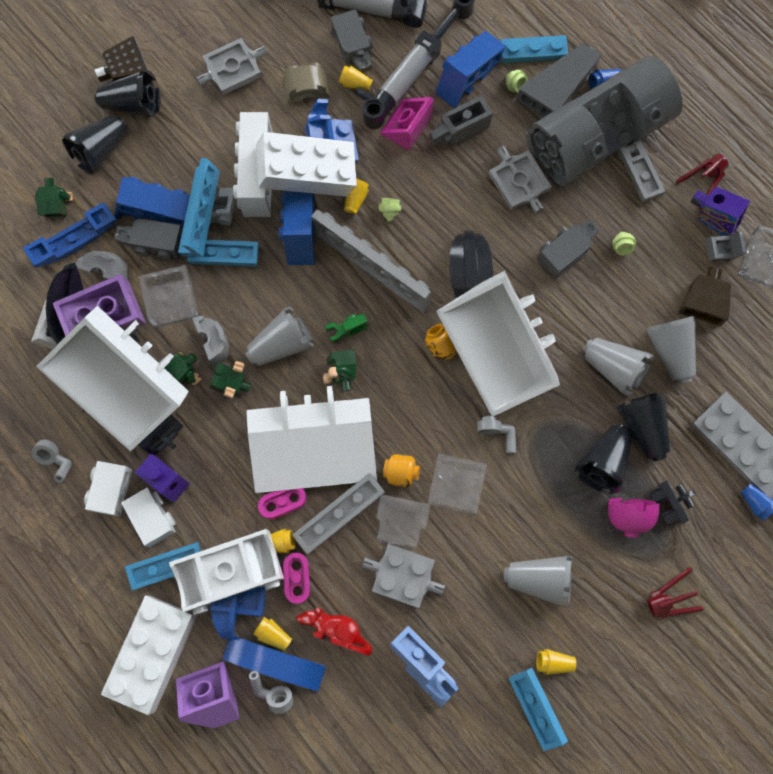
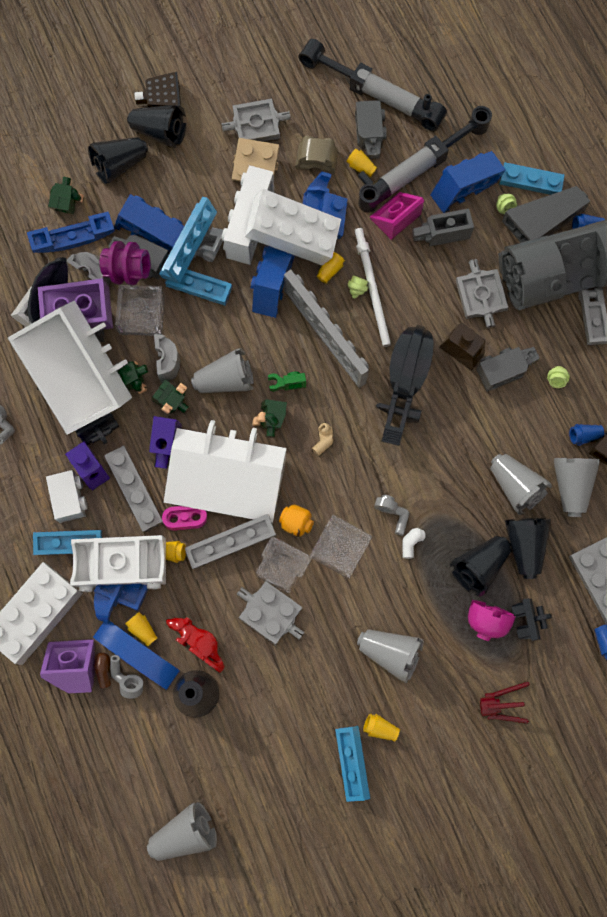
camera: 15 degrees right, 0 degrees up
(107, 488) = (38, 461): white brick -> none
(139, 251) = (125, 263): none -> magenta piece
(219, 488) = (133, 489): none -> light grey plate
(234, 416) = (163, 431): none -> dark purple torso
(241, 99) = (255, 154): none -> tan plate
(242, 689) = (101, 667): none -> reddish brown arm
(296, 578) = (177, 587): dark pink plate -> none
(354, 674) = (205, 695): none -> black cone
(384, 169) = (364, 250): none -> white bar
(405, 377) = (326, 439): none -> tan arm
(424, 666) = (264, 695): medium blue plate -> none
(440, 342) = (367, 418): light orange head -> none
(500, 344) = (416, 434): white piece -> none
(519, 238) = (464, 346): none -> dark brown torso
(525, 455) = (410, 540): none -> white arm
(669, 293) = (583, 434): none -> blue cone

